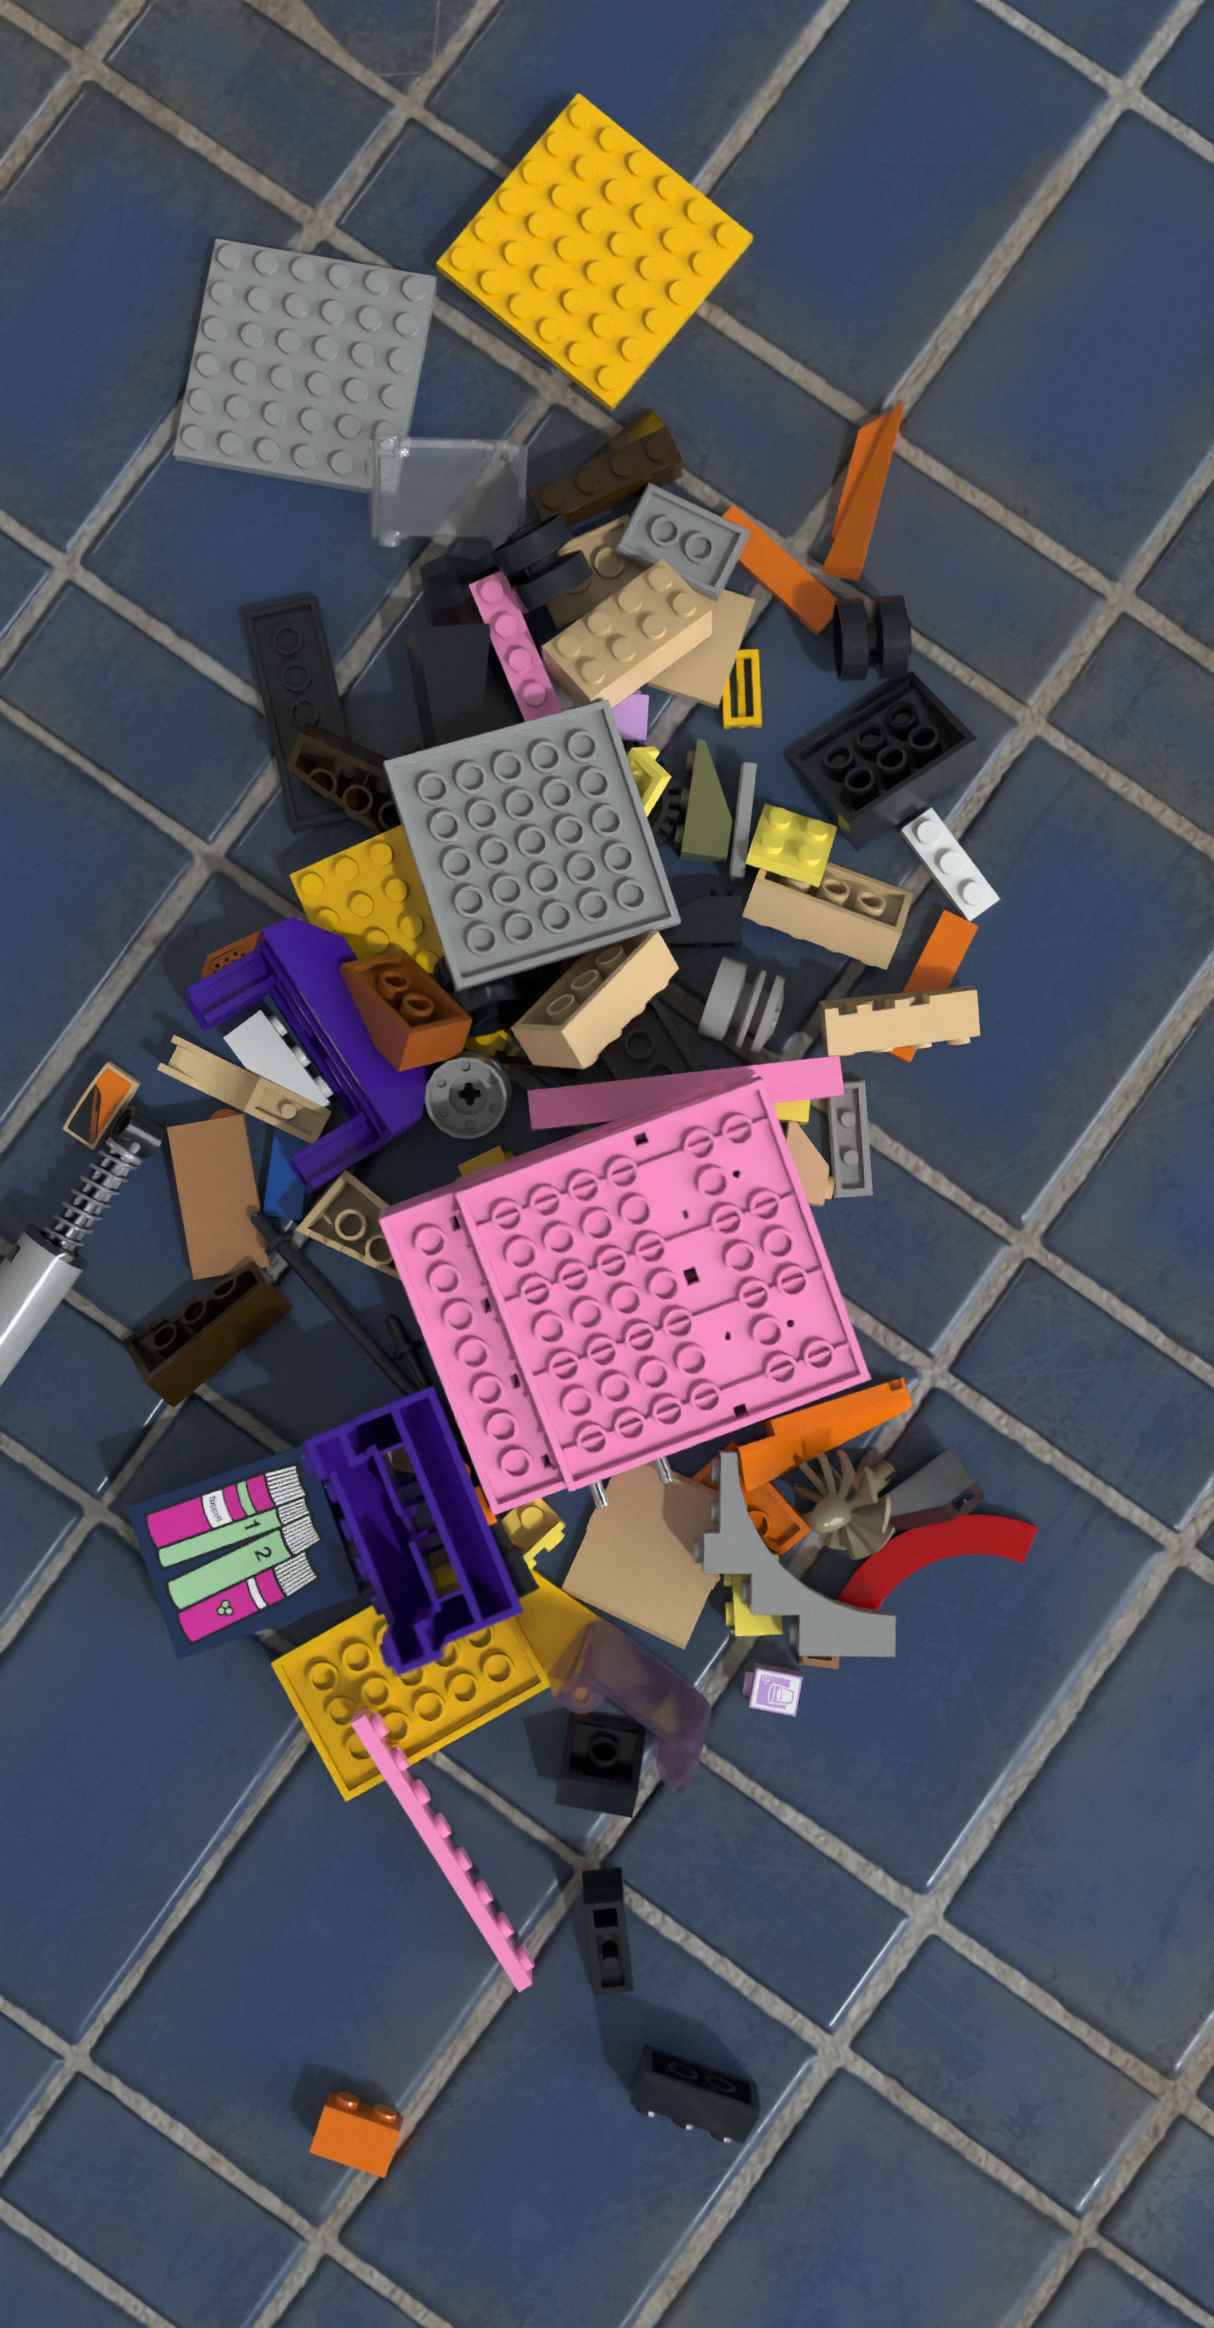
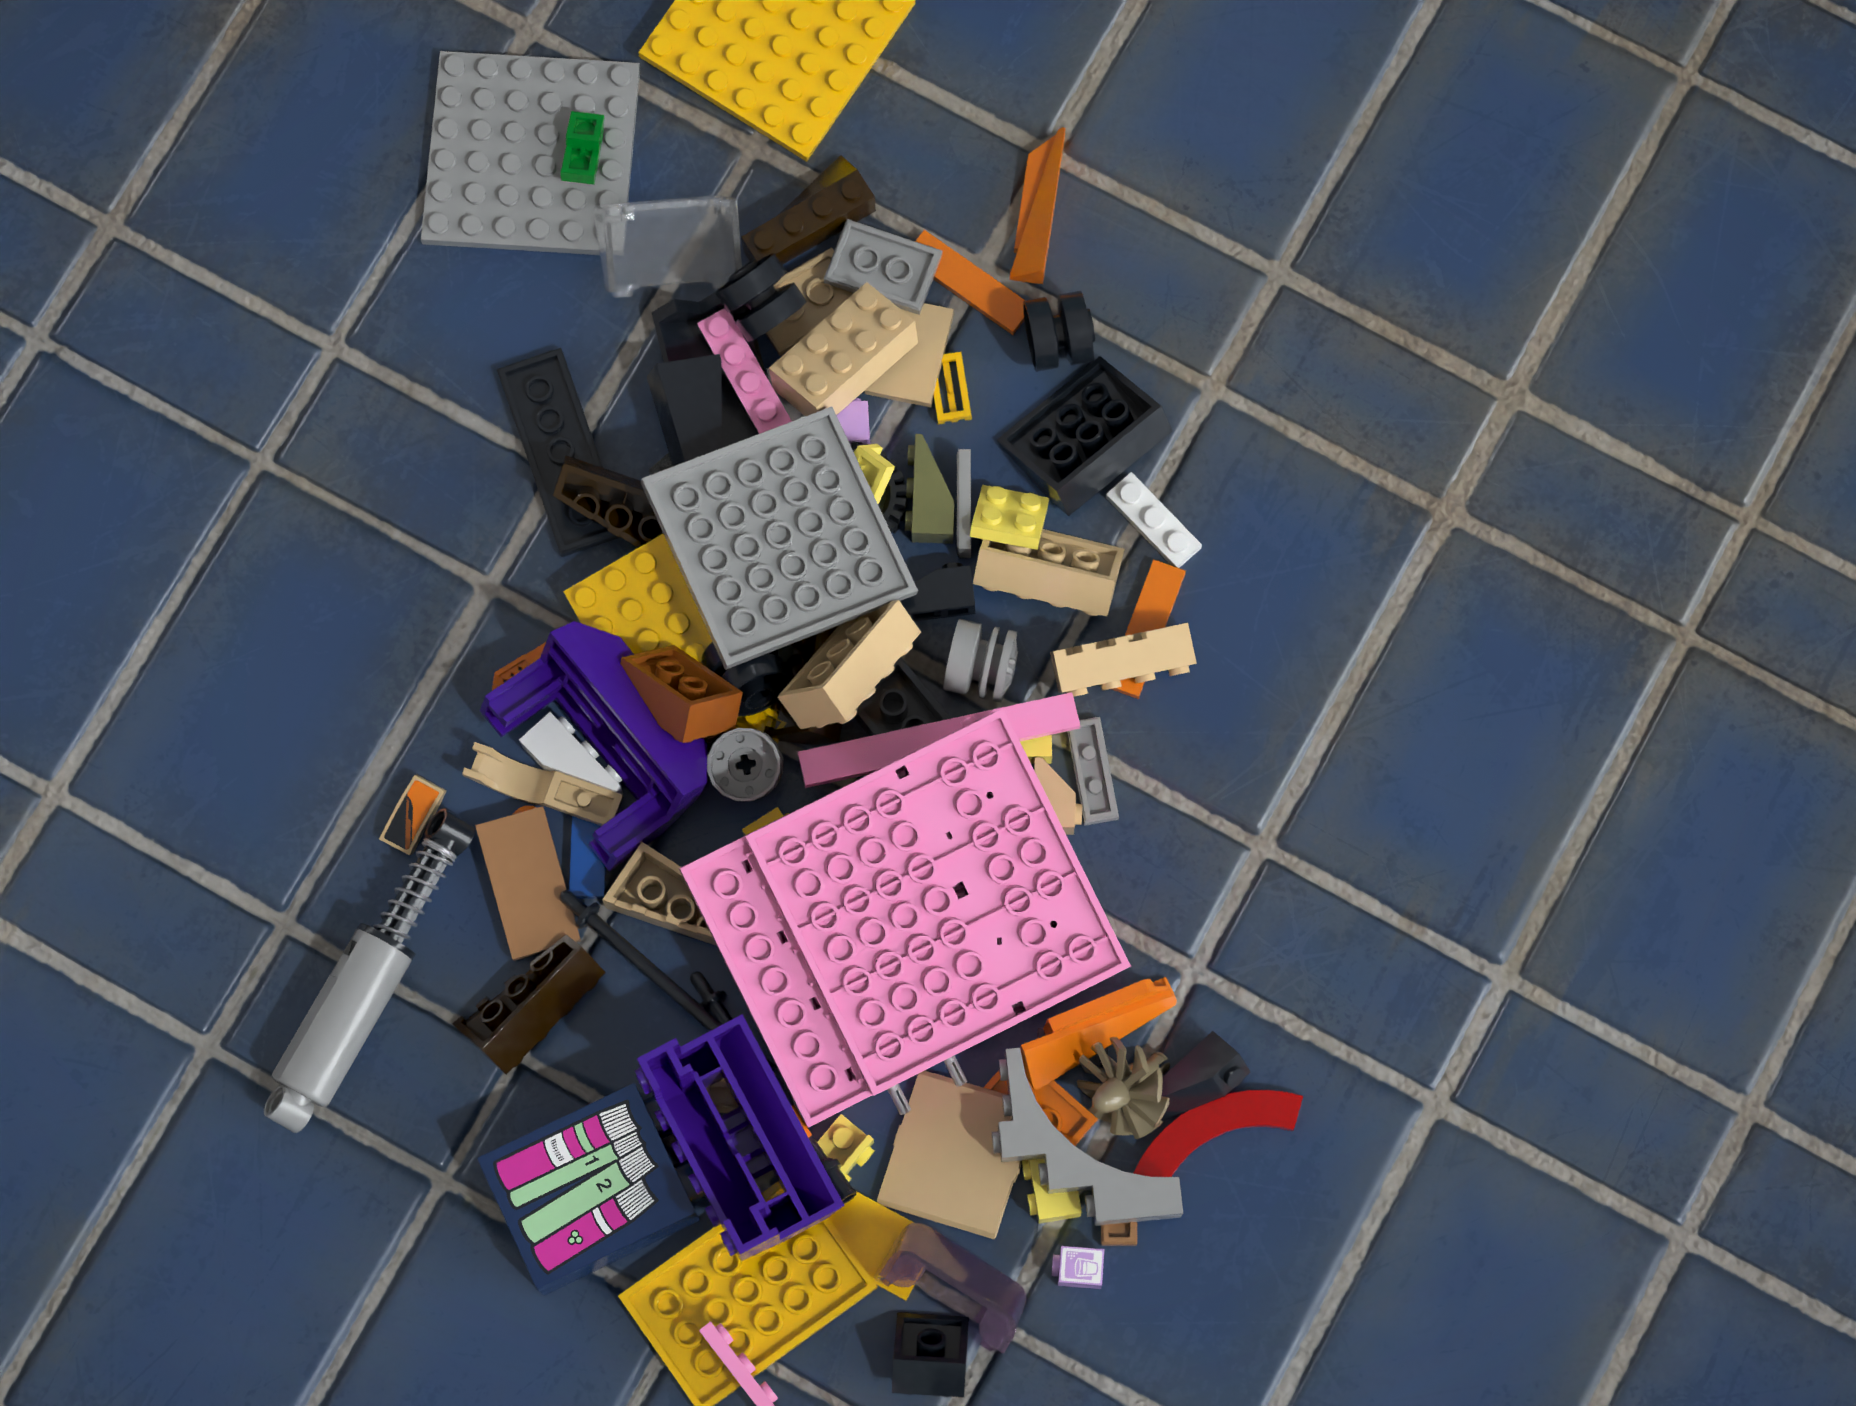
camera: 10 degrees left, 10 degrees down
(362, 367) = (582, 147): none -> green slope

